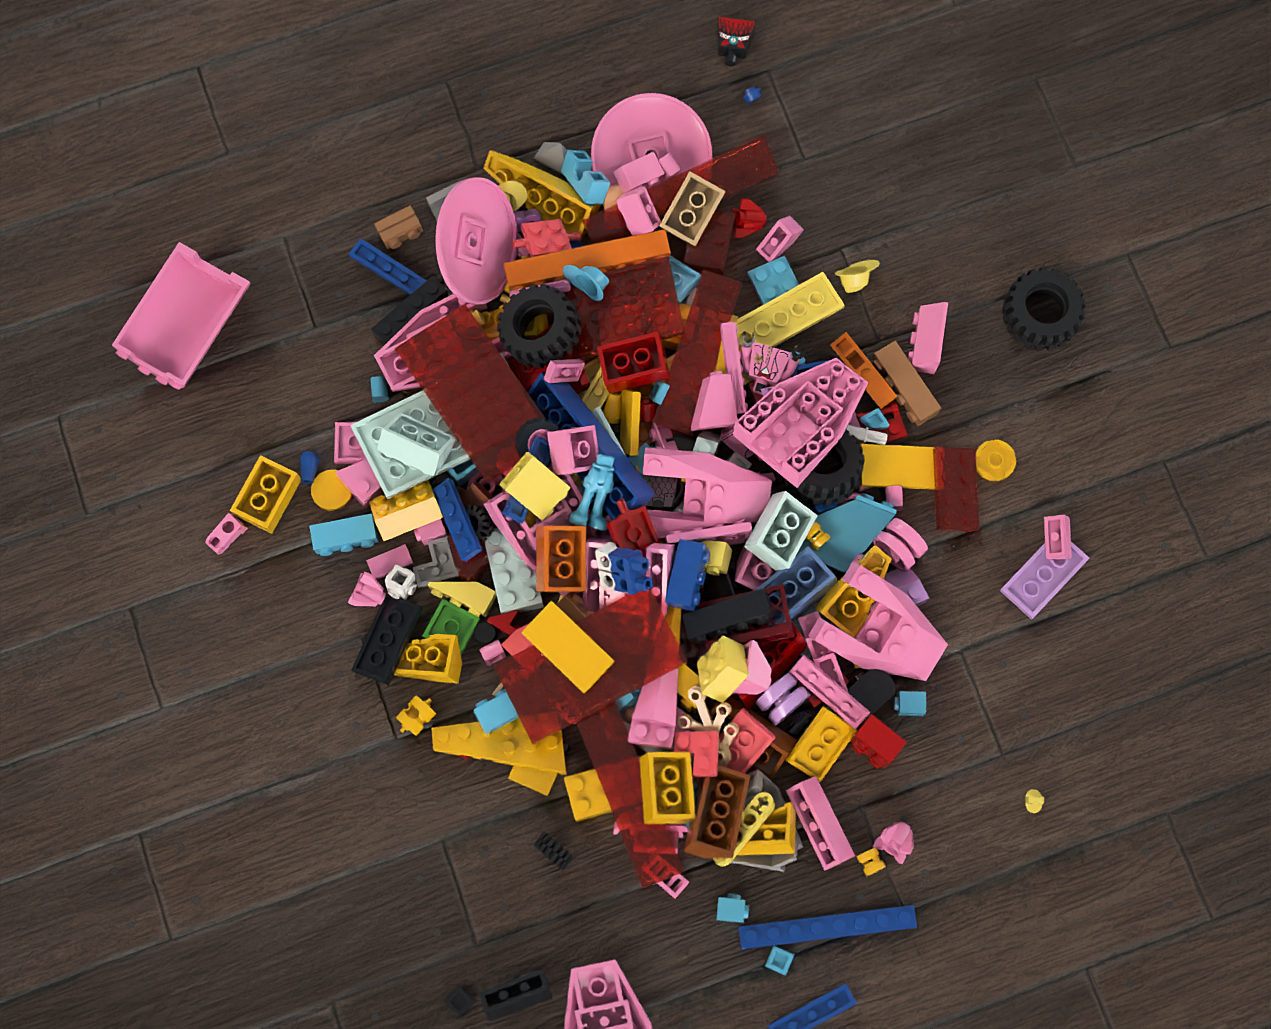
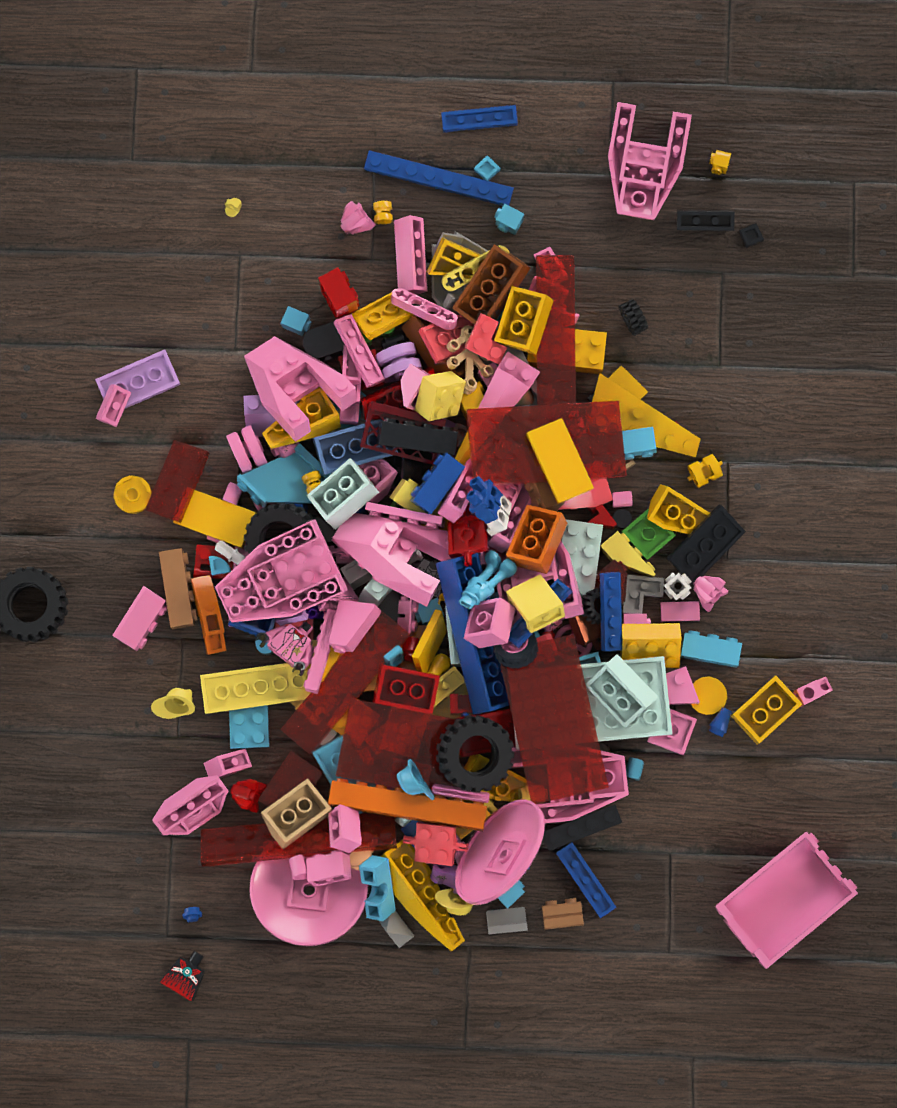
camera: 160 degrees left, 5 degrees up
(564, 370) = (469, 706): bright pink plate -> none
(779, 767) = (405, 299): none -> bright pink beam
(799, 185) = (191, 806): none -> bright pink wedge

